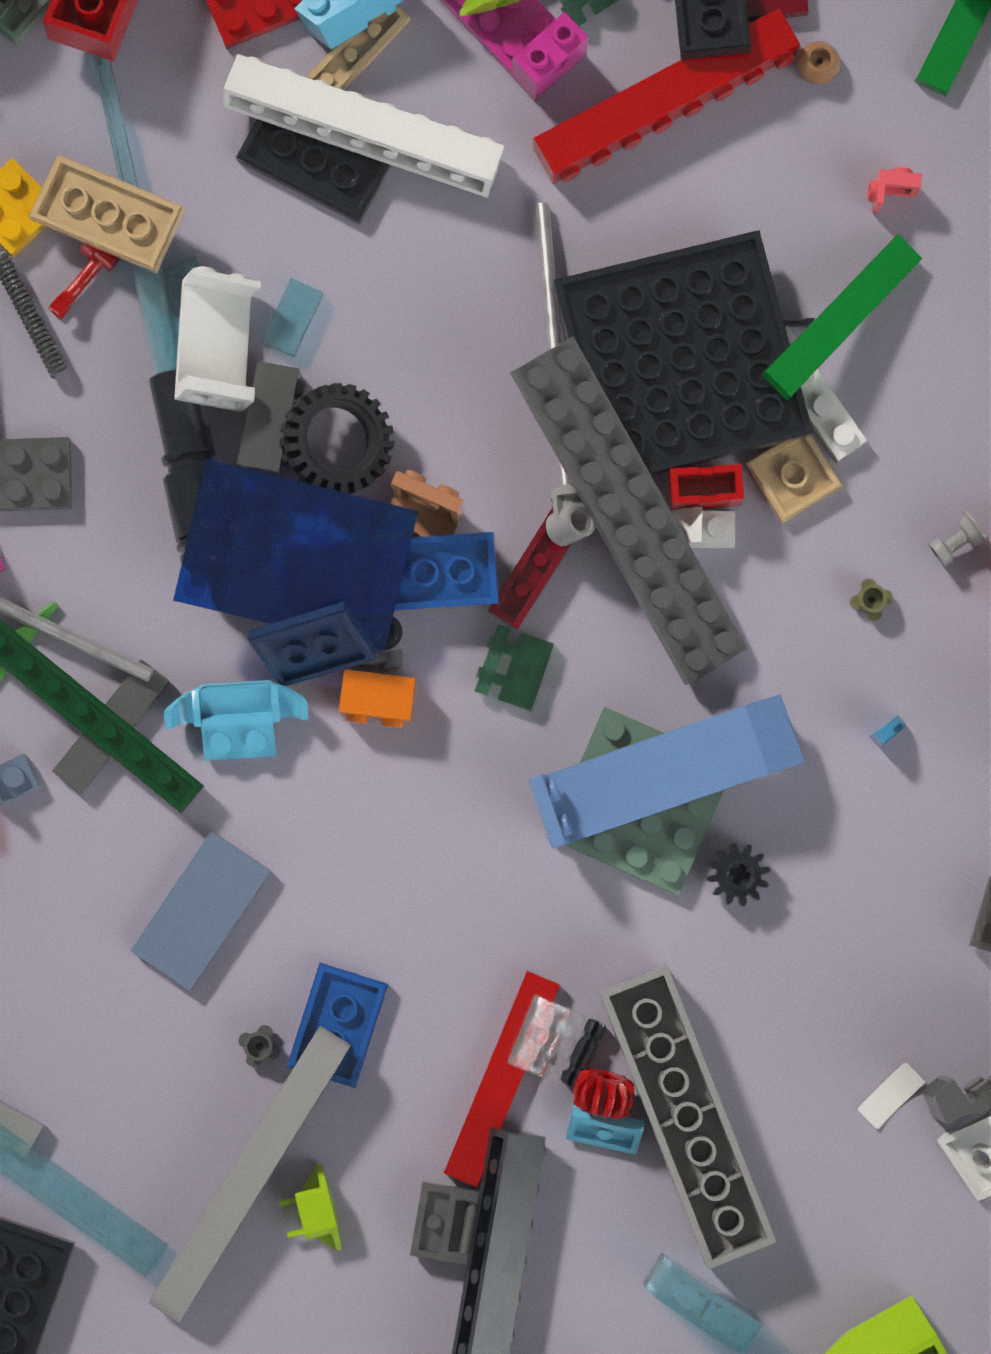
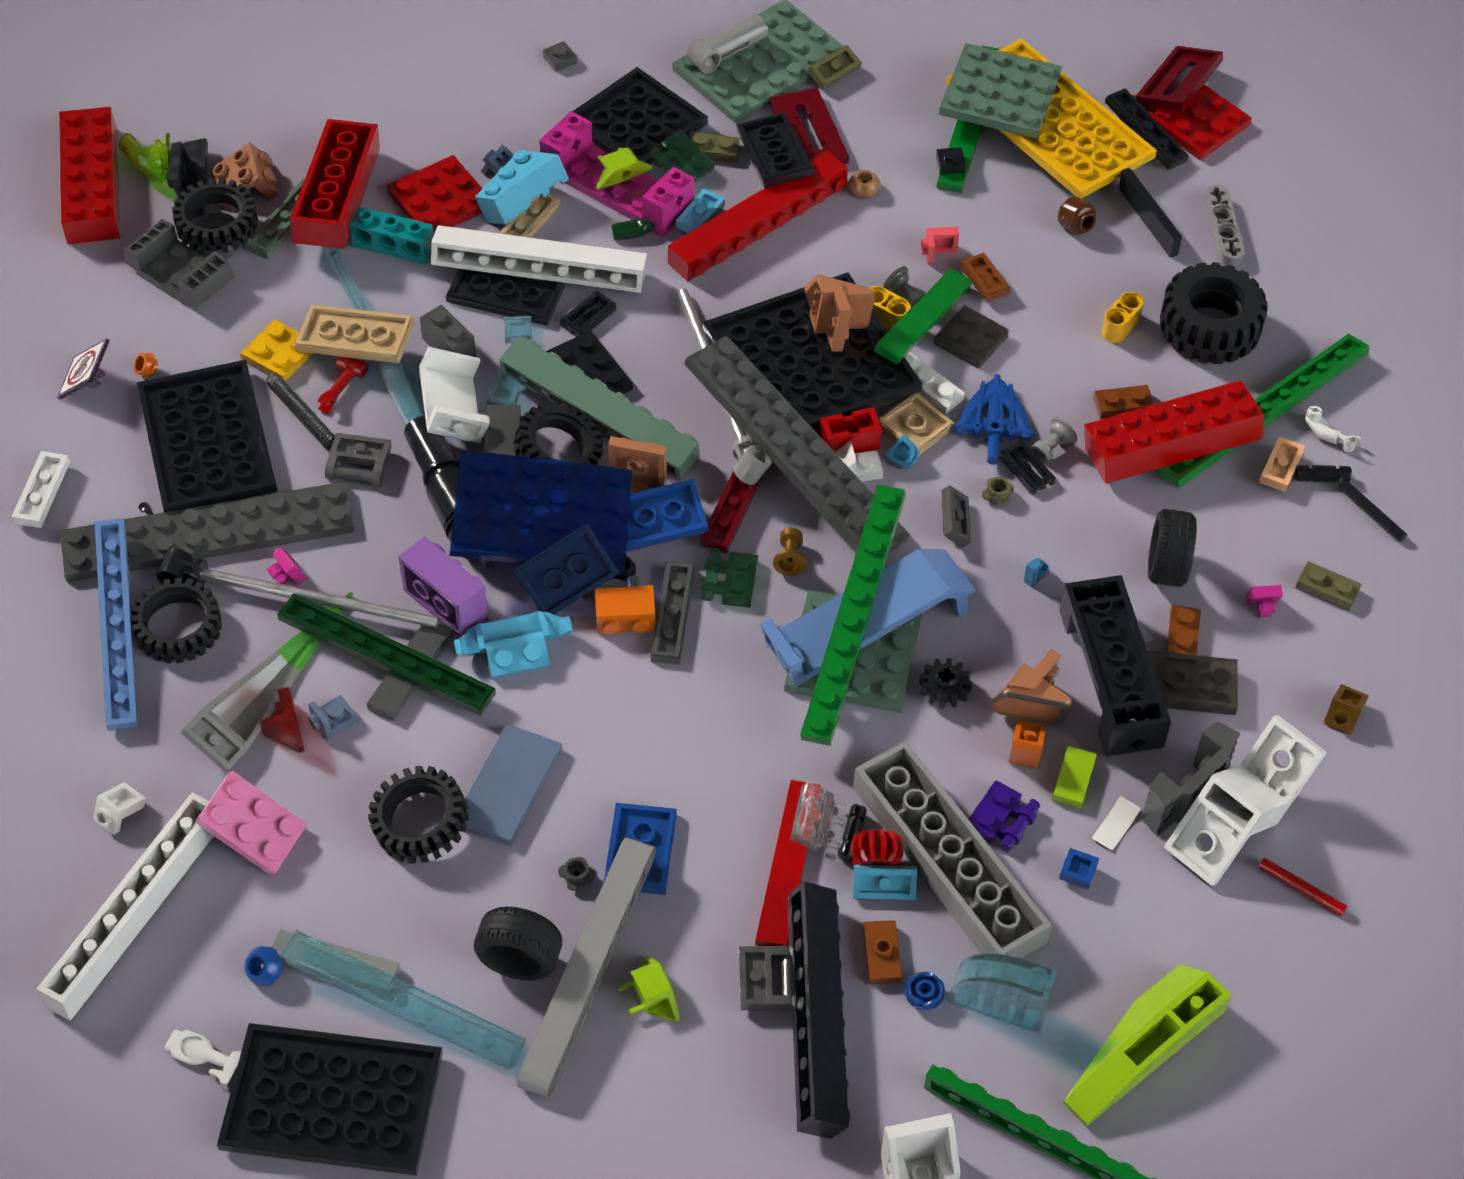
camera: 10 degrees left, 30 degrees down
(49, 934) = (431, 842): none -> black tyre
(94, 394) = (358, 451): none -> flat silver plate
(163, 633) = (443, 586): none -> medium lavender brick
(173, 1147) = (518, 943): none -> black tyre
(179, 46) = (391, 235): none -> teal brick
(226, 232) = (446, 333): none -> dark grey brick
(320, 228) = (517, 326): none -> clear light blue tile
(397, 387) = (610, 411): none -> sand green brick
(398, 312) = (594, 360): none -> black plate
(423, 229) = (591, 316): none -> black tile
(435, 704) = (672, 613): none -> dark grey tile
(494, 85) = (631, 229): none -> dark green piece
(583, 1212) = (882, 952): none -> dark orange plate
(590, 75) = (700, 210): none -> medium azure plate
(590, 660) = (790, 561): none -> pearl gold piece
(622, 1285) = (928, 982): none -> blue plate
(646, 777) = (853, 616): none -> green plate
(727, 307) = (838, 307): none -> nougat piece
(753, 1055) = (994, 811): none -> dark purple plate
(767, 522) = (903, 453): none -> dark azure tile
(804, 284) = (889, 306): none -> yellow beam
(809, 633) = (956, 516): none -> dark grey plate
(816, 974) = (1027, 744): none -> orange slope
(825, 248) = (899, 282): none -> dark grey piece
(831, 918) = (1032, 694): none -> nougat piece
(831, 1152) = (1079, 868): none -> blue plate
(858, 1026) = (1074, 777): none -> lime tile
(898, 347) = (971, 336): none -> clear smoke plate
(904, 572) = (1023, 470): none -> black tile
(908, 448) = (997, 395): none -> blue bar
(939, 254) = (985, 277): none -> dark orange plate
(942, 47) = (950, 160): none -> black plate
(945, 897) = (1116, 665): none -> black plate

